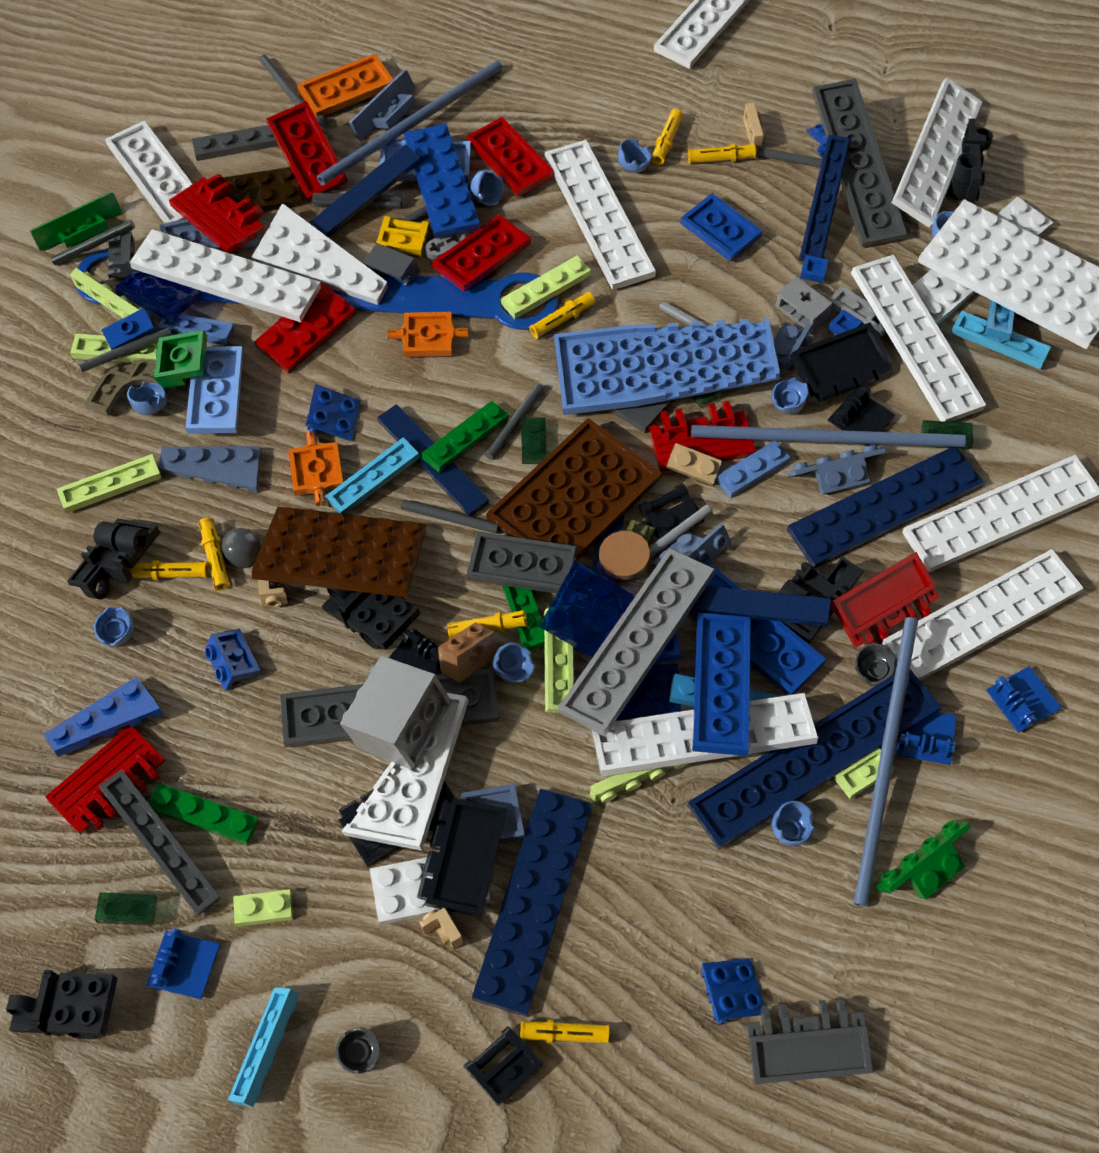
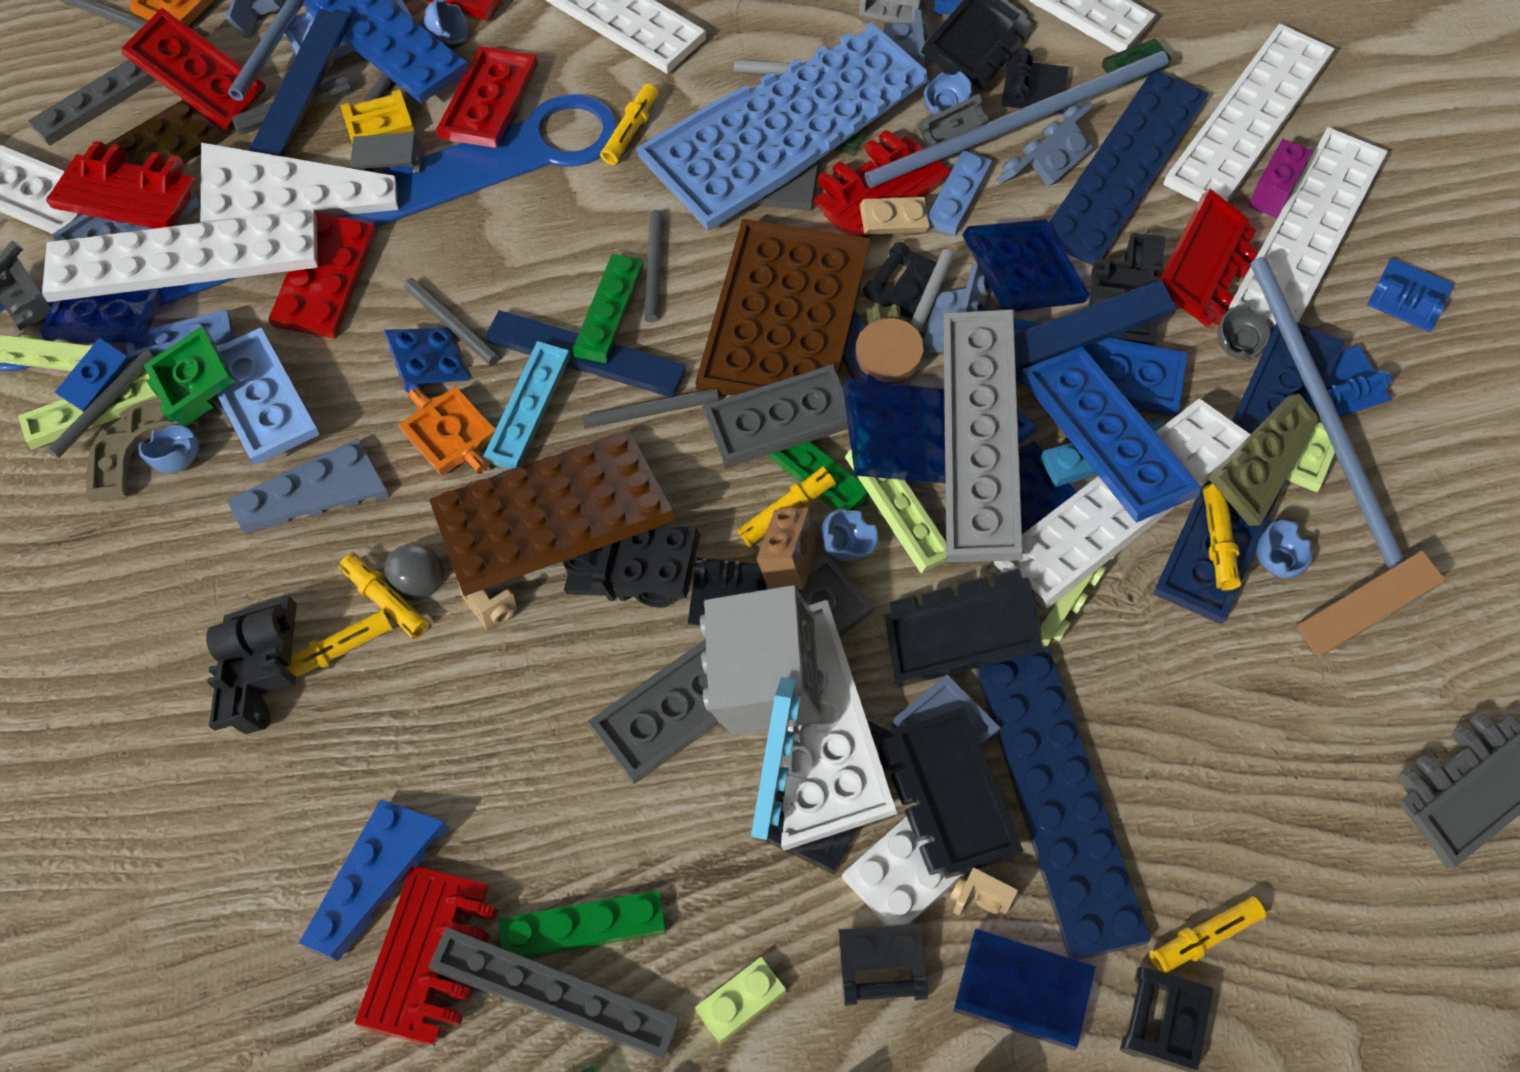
camera: 30 degrees left, 0 degrees up
(109, 483) = (183, 579): yellowish green plate -> none
(114, 626) = (309, 752): medium blue hair -> none
(231, 657) = (491, 711): blue bracket -> none
(360, 925) = (882, 949): none -> black plate
(362, 769) = (779, 744): none -> medium azure plate
(364, 398) = (451, 322): none -> dark grey bar
(427, 334) = (483, 214): orange plate -> none
(429, 997) = (1024, 989): none -> clear blue plate
(442, 244) = (433, 108): light grey beam -> none
(533, 440) = (691, 276): clear green plate -> none
(542, 759) = (963, 630): none -> black hinge
(545, 287) = (589, 102): yellowish green plate -> none
(732, 989) = (1355, 773): blue hinge -> none
(747, 799) = (1223, 549): none -> yellow pin
(755, 542) = (1025, 265): none -> clear blue plate
(777, 417) = (953, 121): none -> dark grey hinge
(813, 757) = (1263, 461): none -> olive wing
(825, 890) = (1370, 604): none -> medium nougat tile
(930, 865) = (1450, 512): green bracket -> none
(986, 567) = (1280, 178): none -> magenta brick

